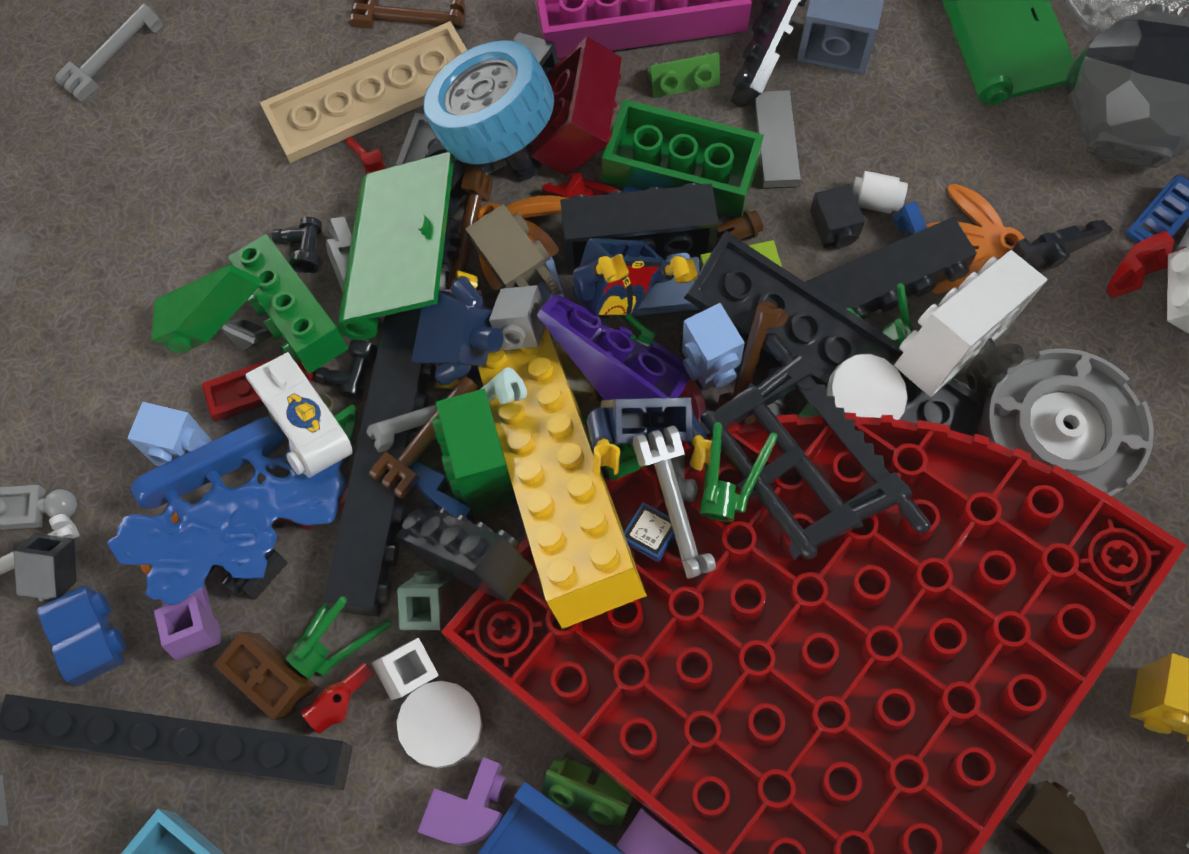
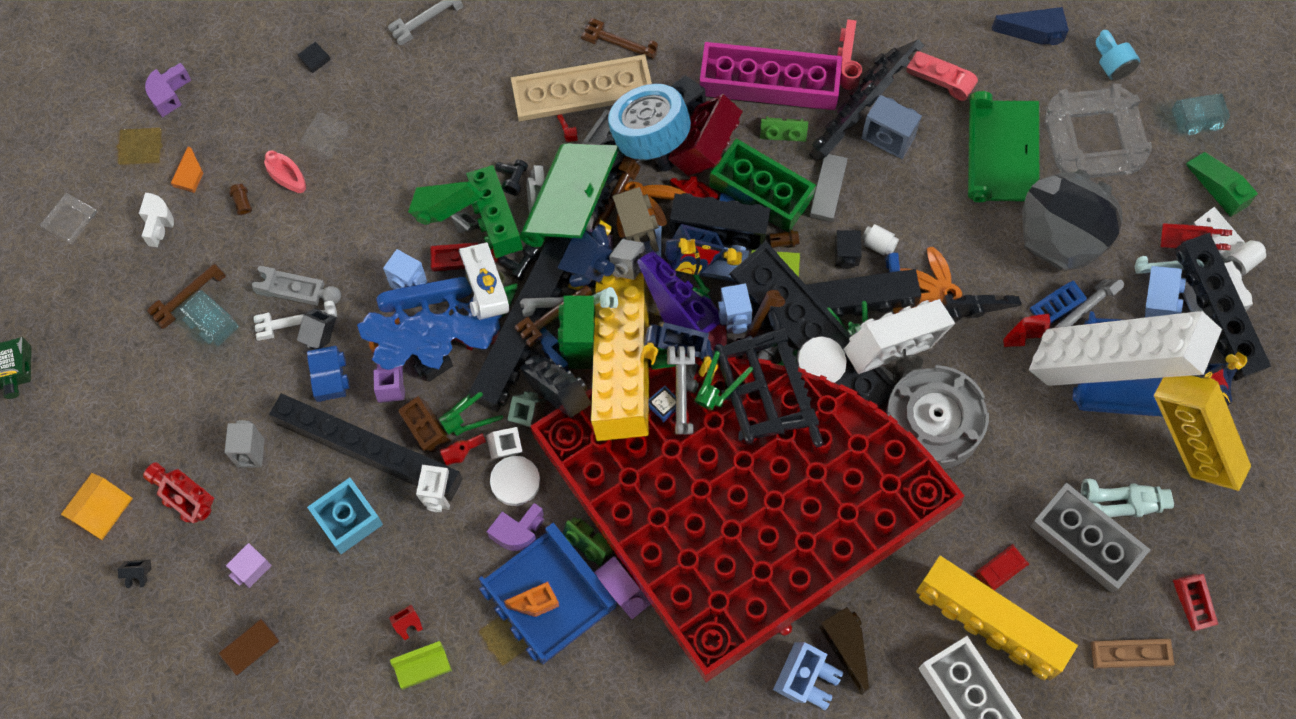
camera: 15 degrees right, 0 degrees up
(304, 784) = (432, 488): none -> white bracket

